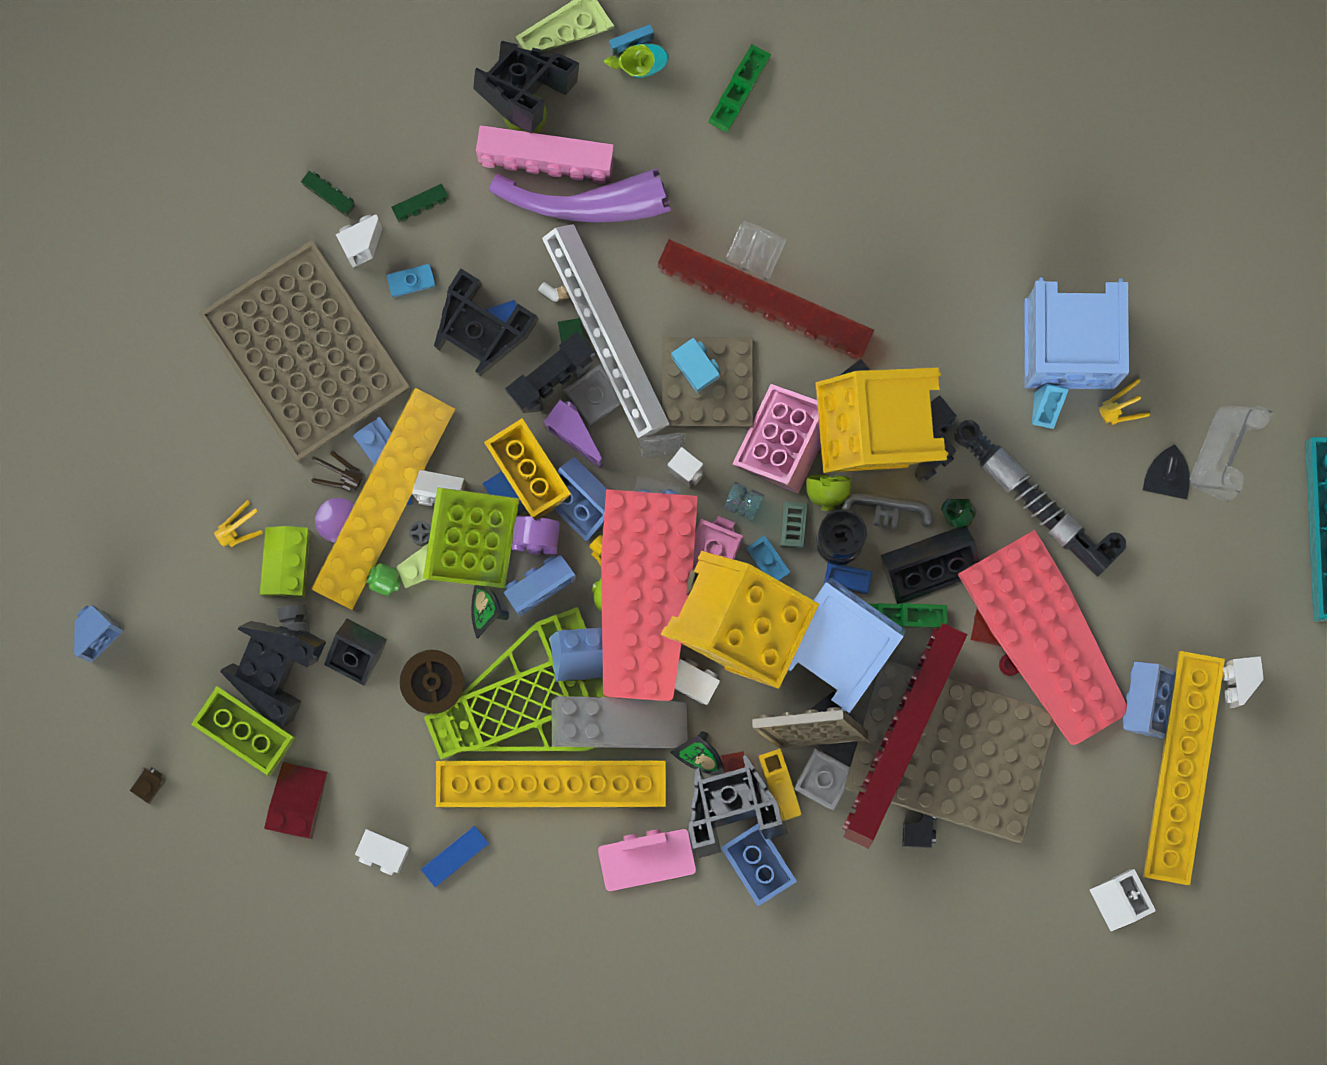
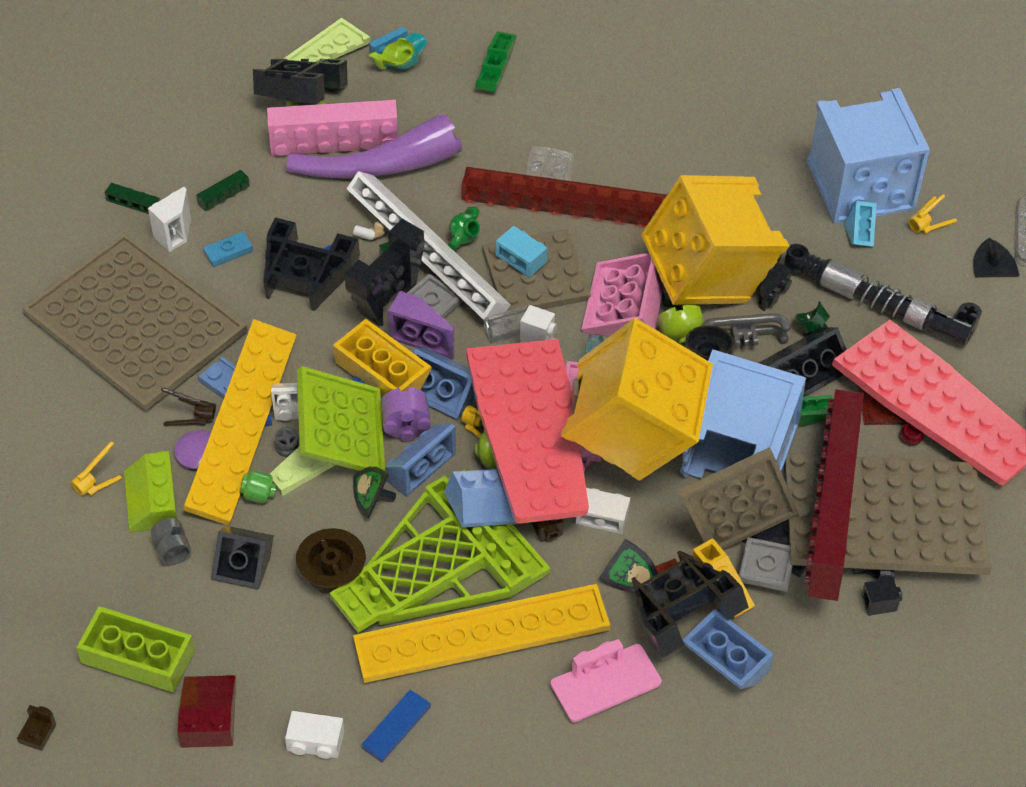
camera: 15 degrees left, 30 degrees down
(267, 667) = (152, 575): black wedge -> none
(618, 722) = (533, 551): light grey slope -> none
(648, 314) = (464, 227): none -> green piece

